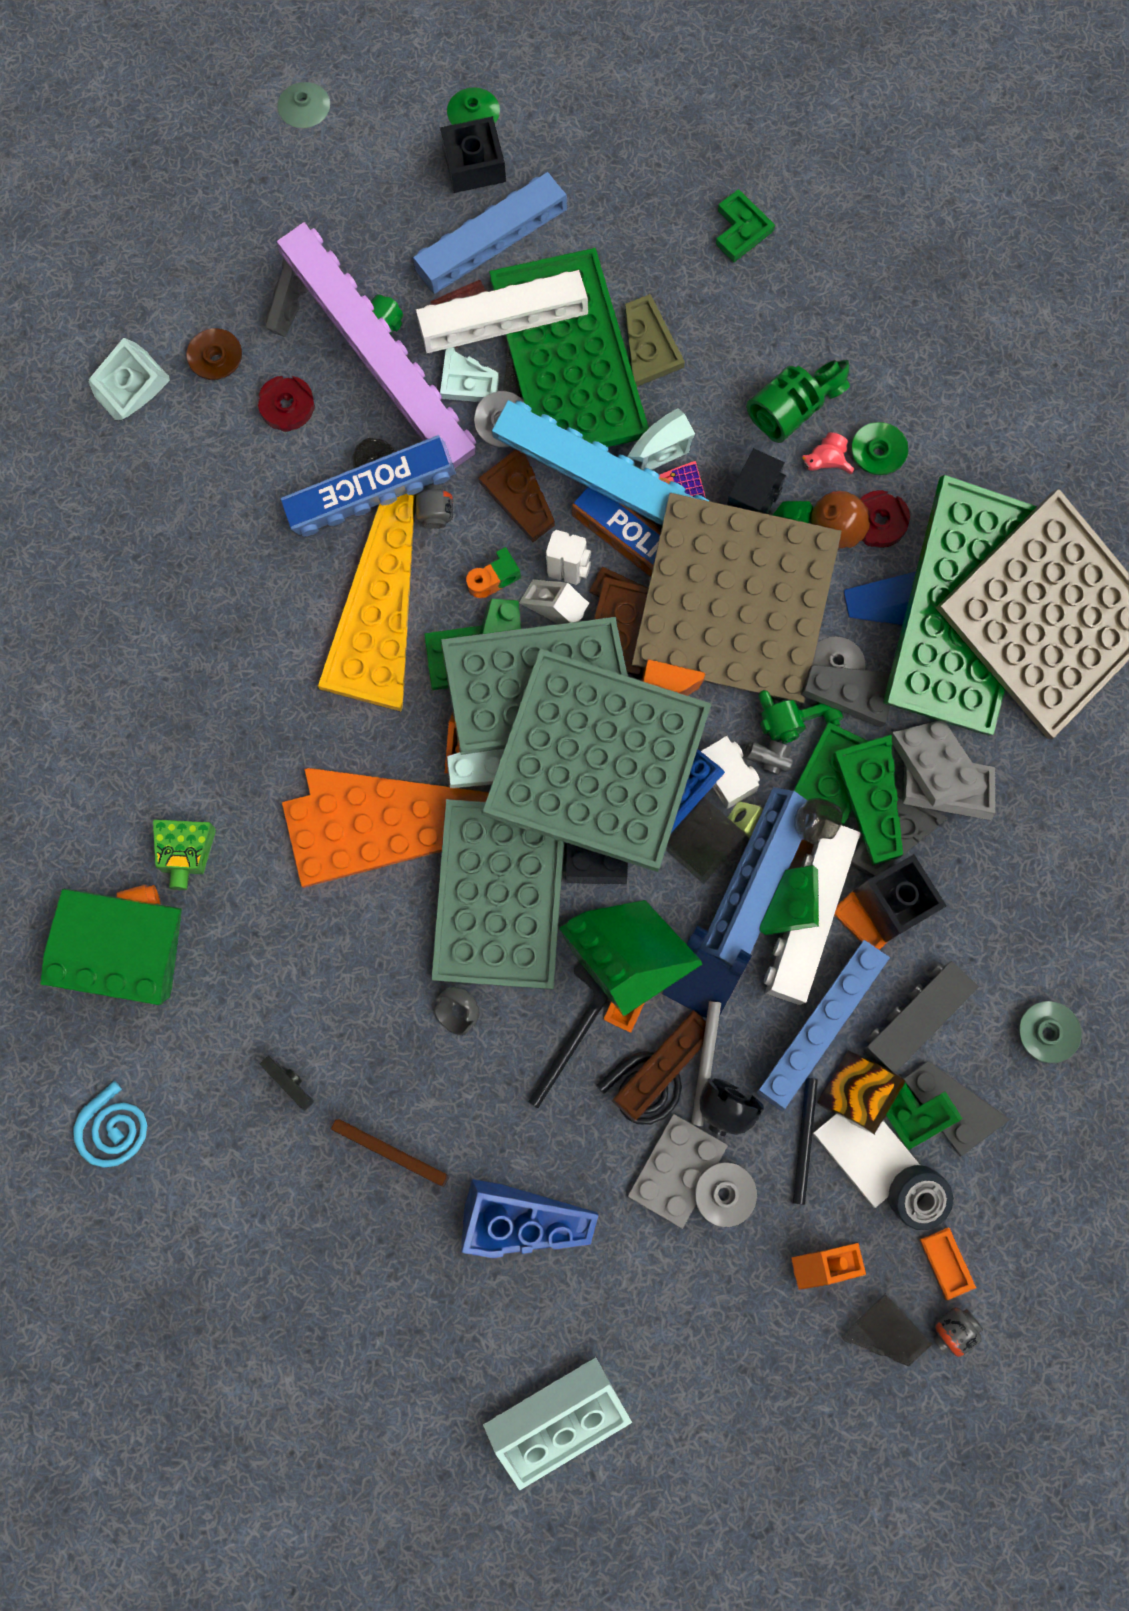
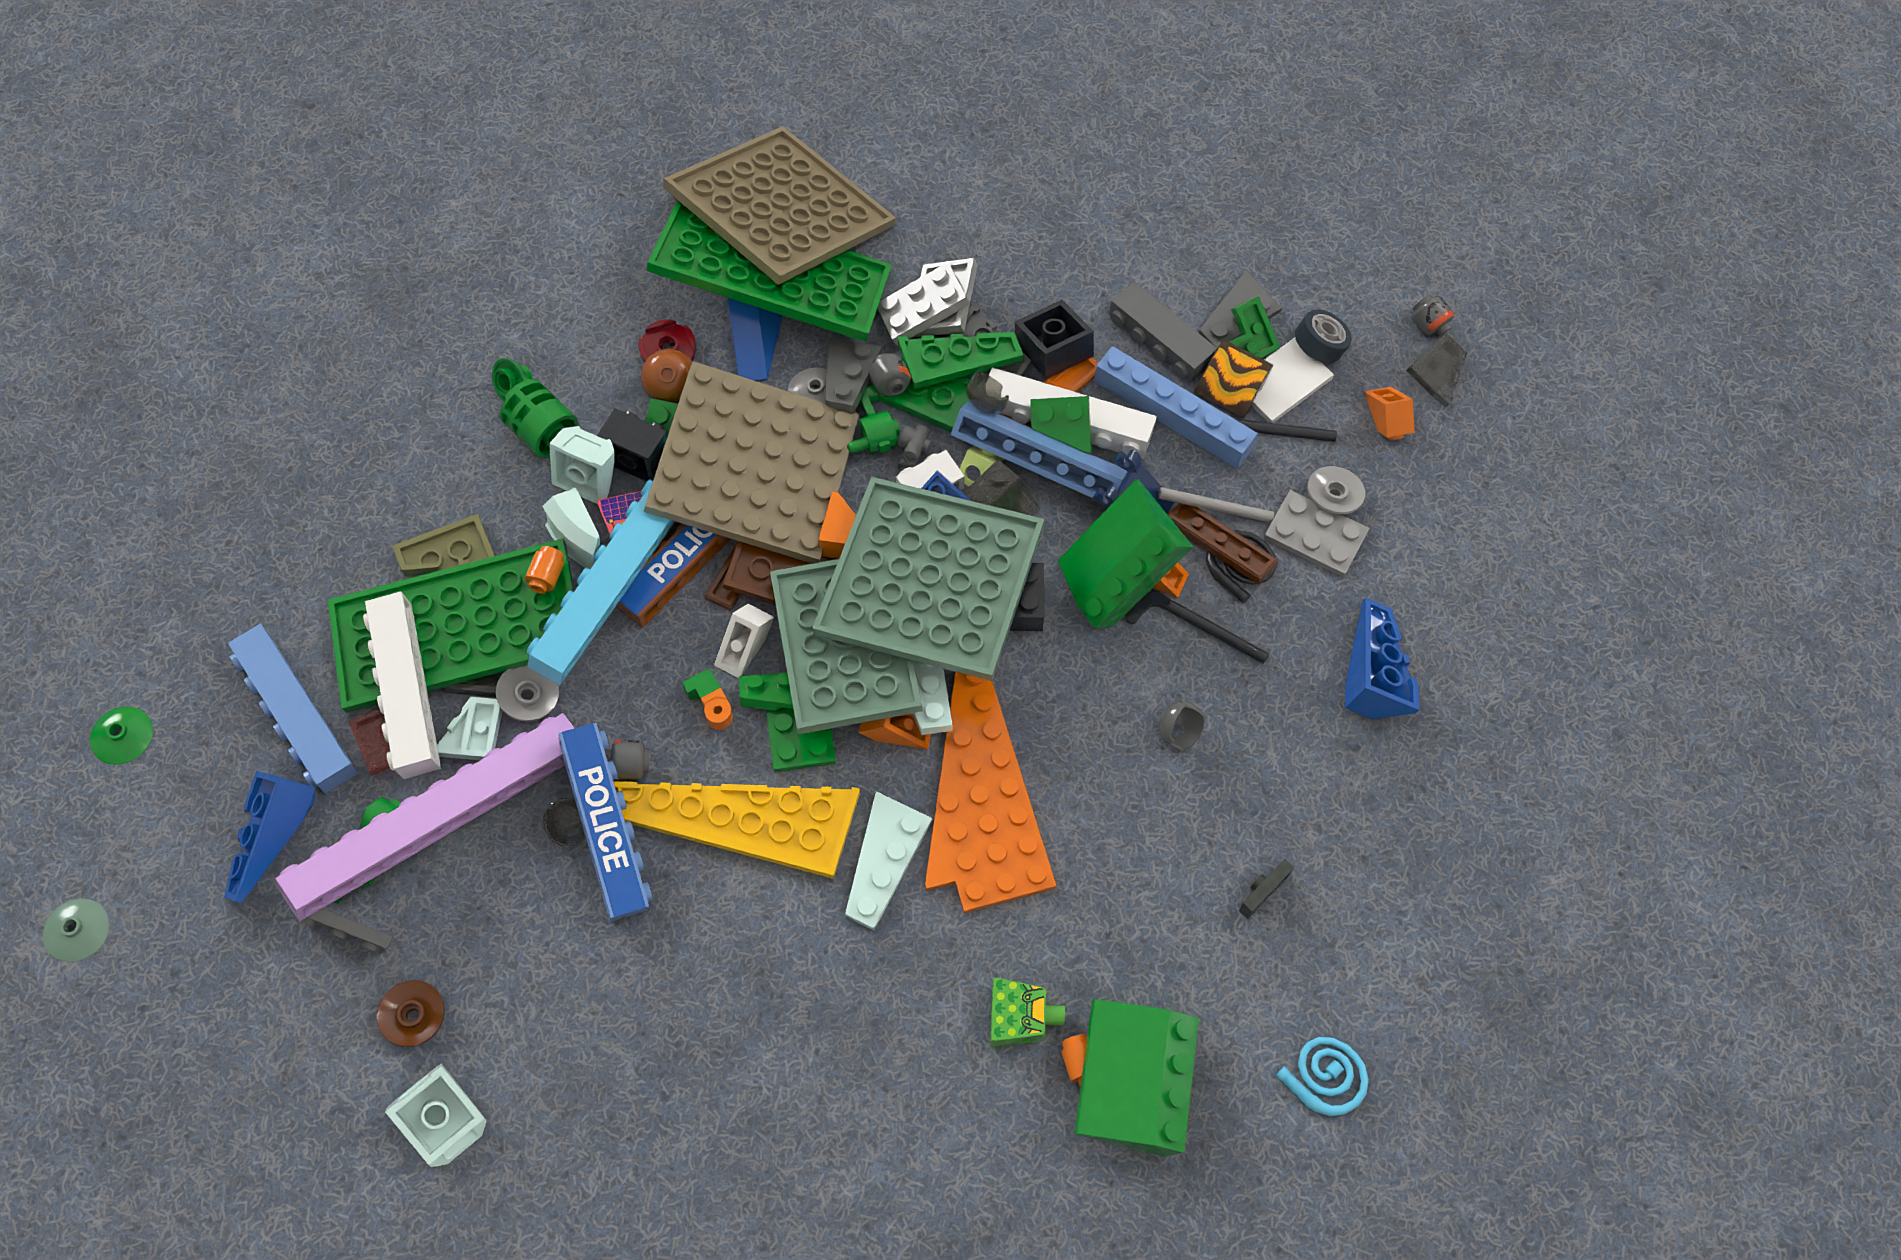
camera: 95 degrees left, 10 degrees down
(286, 388) = (484, 910): dark red plate -> none
(341, 734) = (886, 852): none -> light aqua wing
(390, 1152) = (1326, 786): reddish brown tile -> none
(392, 234) = (276, 813): none -> blue wedge
(473, 154) = (188, 725): black brick -> none
(496, 902) = (1067, 690): sand green plate -> none
(519, 495) = (617, 677): reddish brown wing -> none
(556, 1424) = (1555, 632): light aqua slope -> none
(567, 557) = (699, 620): white brick -> none
(610, 415) = (544, 569): none -> orange brick
(727, 1108) = (1260, 484): black cylinder -> none
(731, 441) = (582, 463): none -> light aqua slope
(747, 228) = (319, 452): green plate -> none
(829, 454) = (594, 387): coral animal -> none
(845, 728) = (889, 374): none -> dark grey head
(883, 437) = (588, 333): green dish -> none
(947, 1263) = (1375, 323): orange tile -> none
(1065, 1030) = (1169, 226): sand green dish -> none

